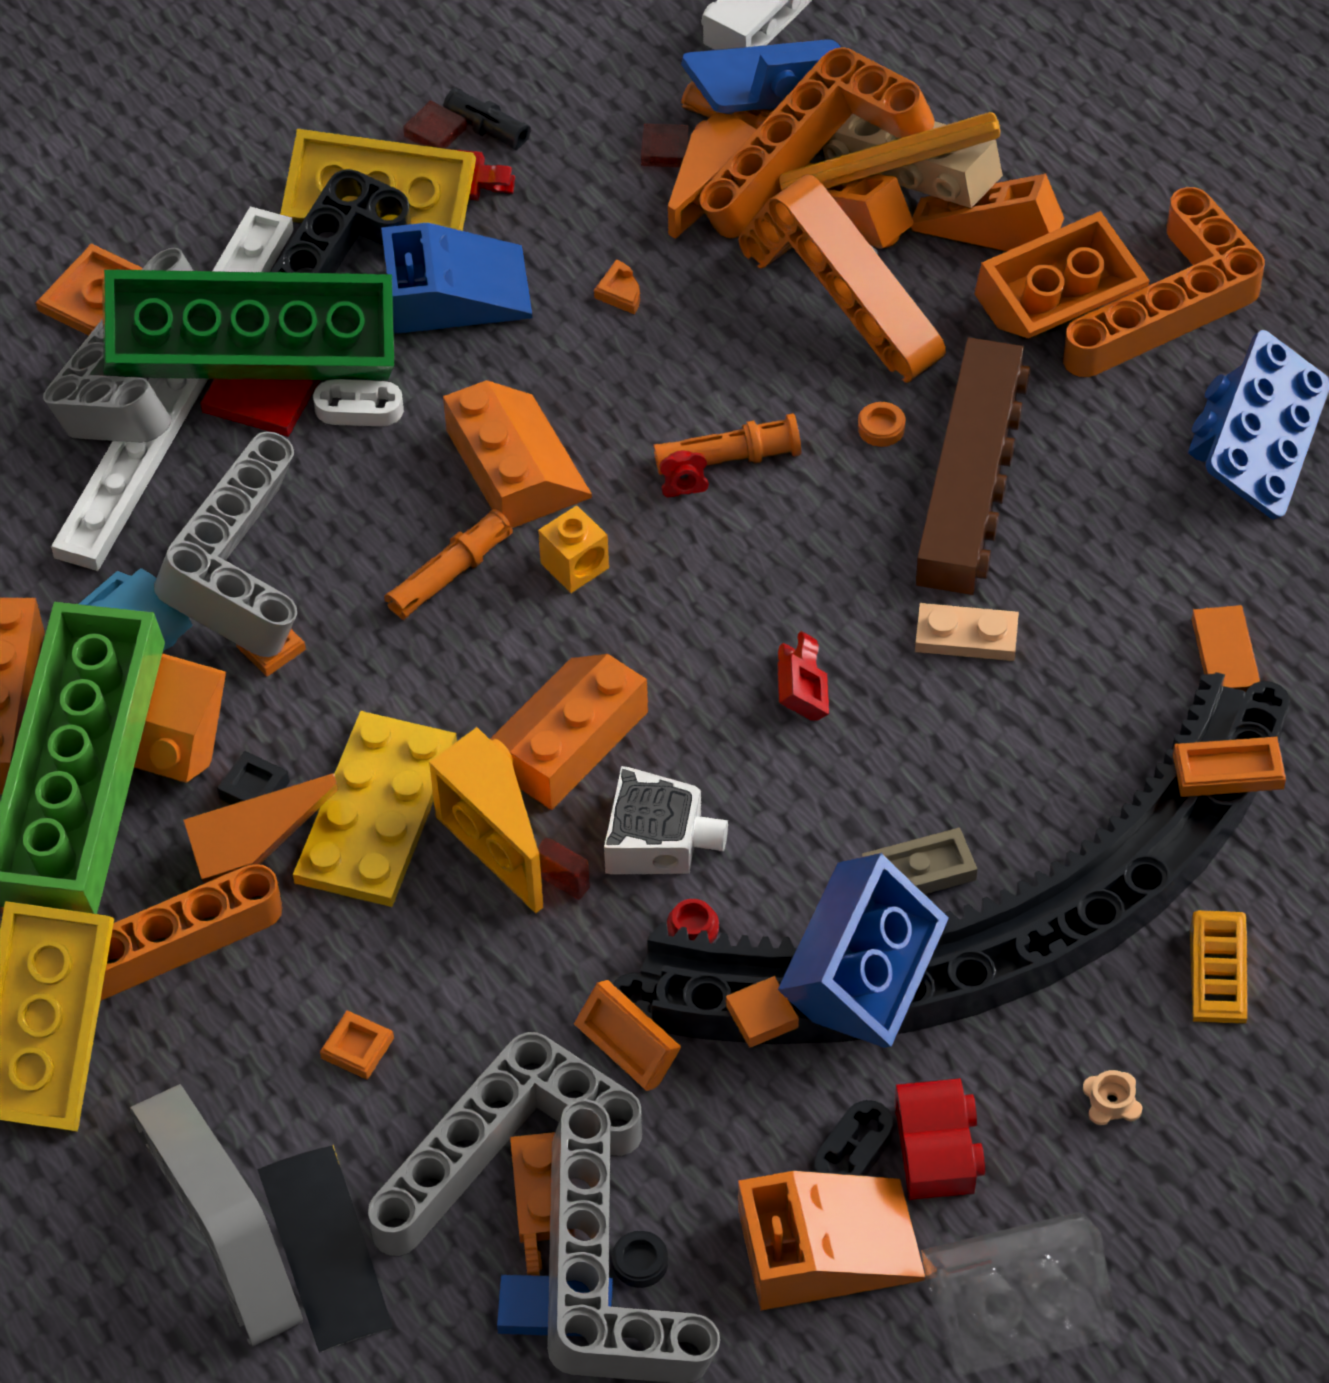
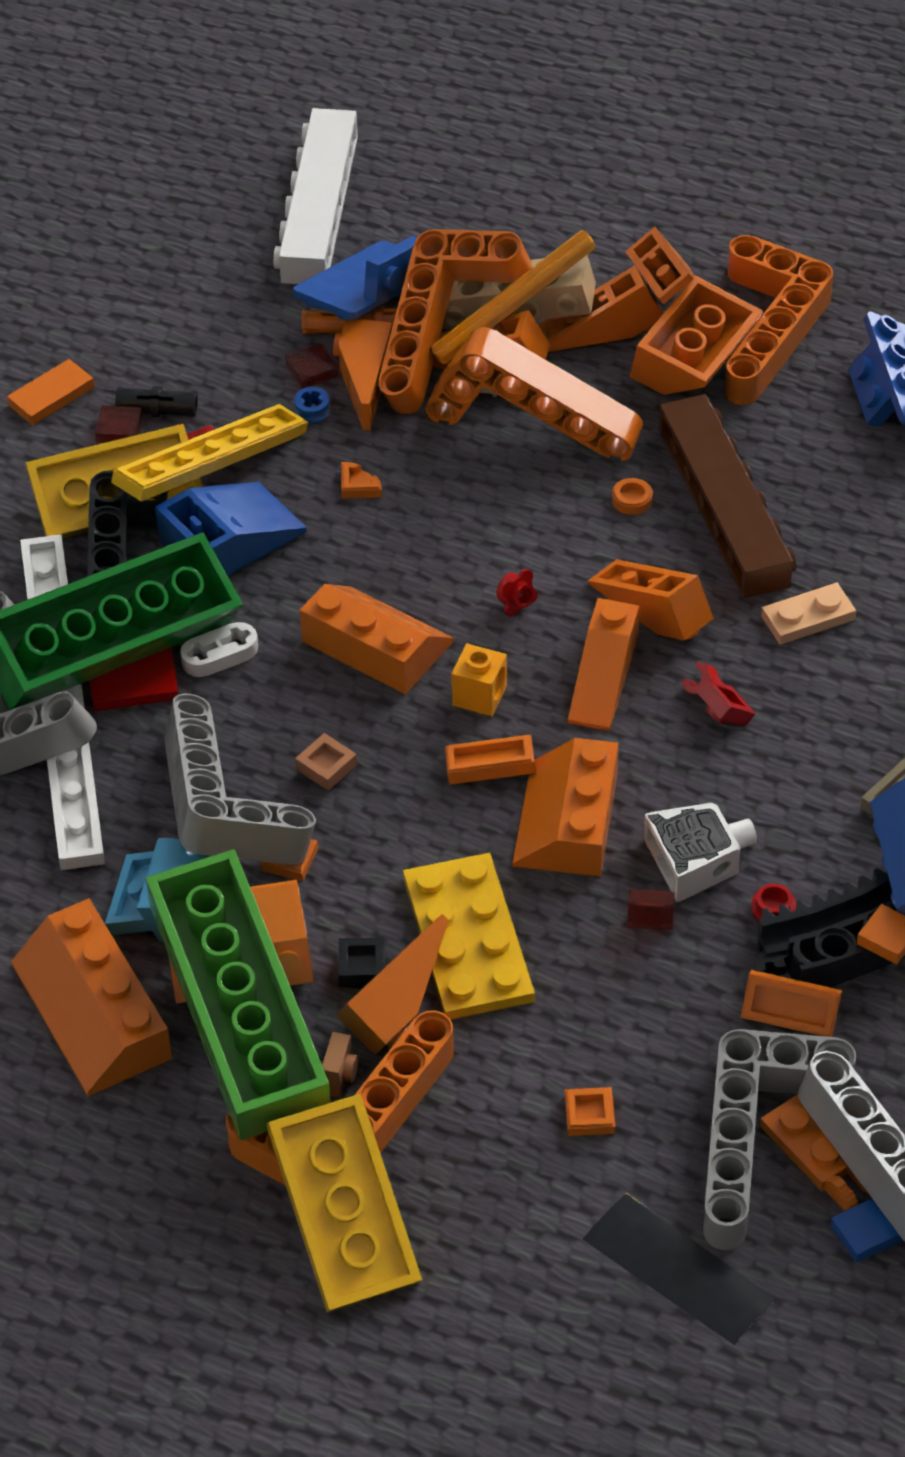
camera: 30 degrees left, 5 degrees down
(151, 877) = (340, 1063): none -> nougat plate
(222, 1212) = (598, 1259): light grey beam -> none
(370, 565) = (326, 761): none -> nougat plate
(396, 65) = (50, 391): none -> orange tile
(462, 552) = (391, 721): orange pin -> none
(478, 193) = (209, 452): none -> yellow tile
(484, 809) = (580, 893): light orange slope -> none
(528, 637) = (490, 759): none -> orange tile
(633, 175) = (308, 396): none -> blue bush
(713, 589) = (604, 663): none -> orange slope
(750, 442) = (547, 549): orange pin -> none
(816, 544) = (667, 599): none -> orange slope
(1080, 186) = (660, 265): none -> orange slope

